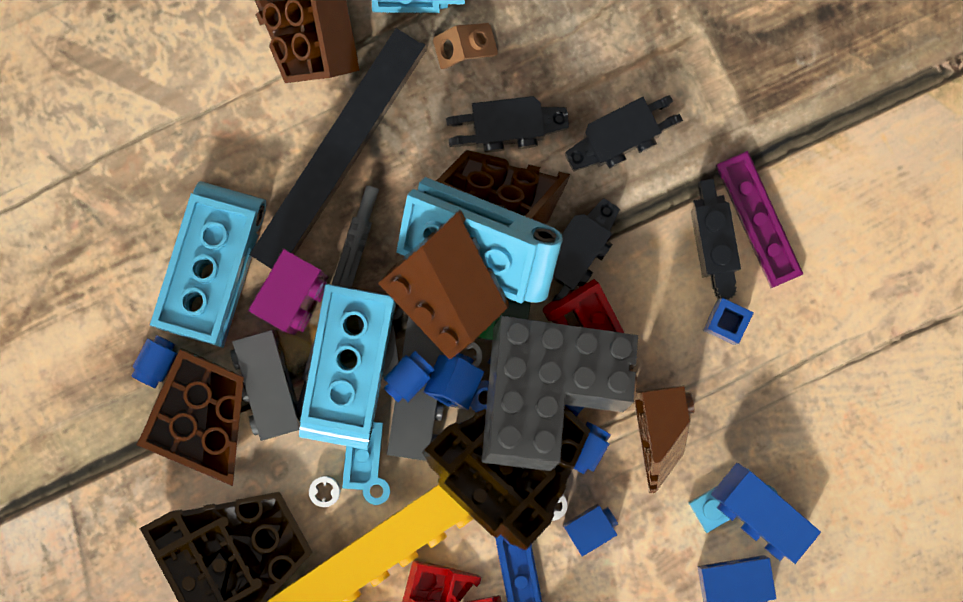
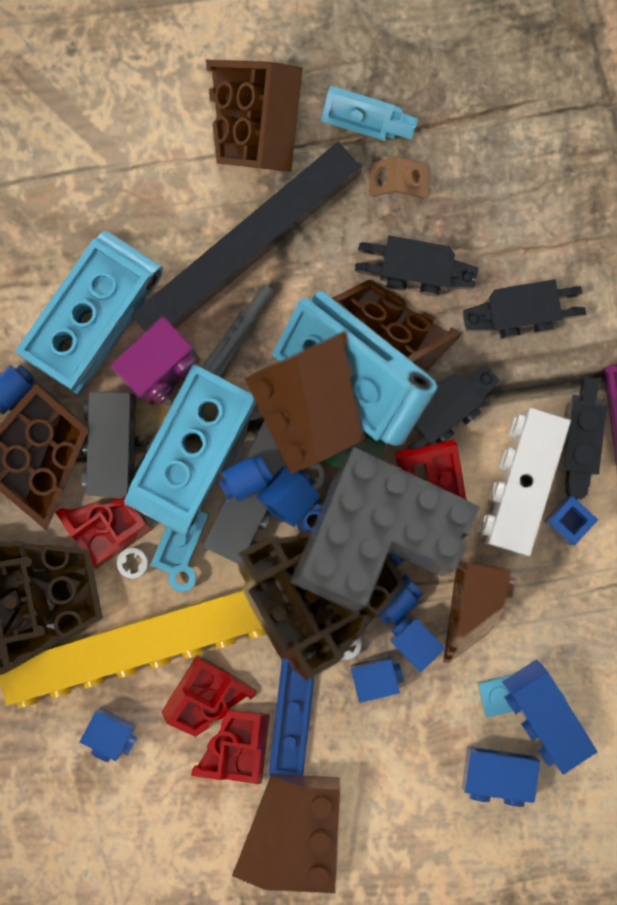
camera: 30 degrees right, 0 degrees up
(286, 466) = (104, 528): none -> red slope
(618, 483) = (416, 643): none -> blue brick
(672, 272) = (534, 458): none -> white brick

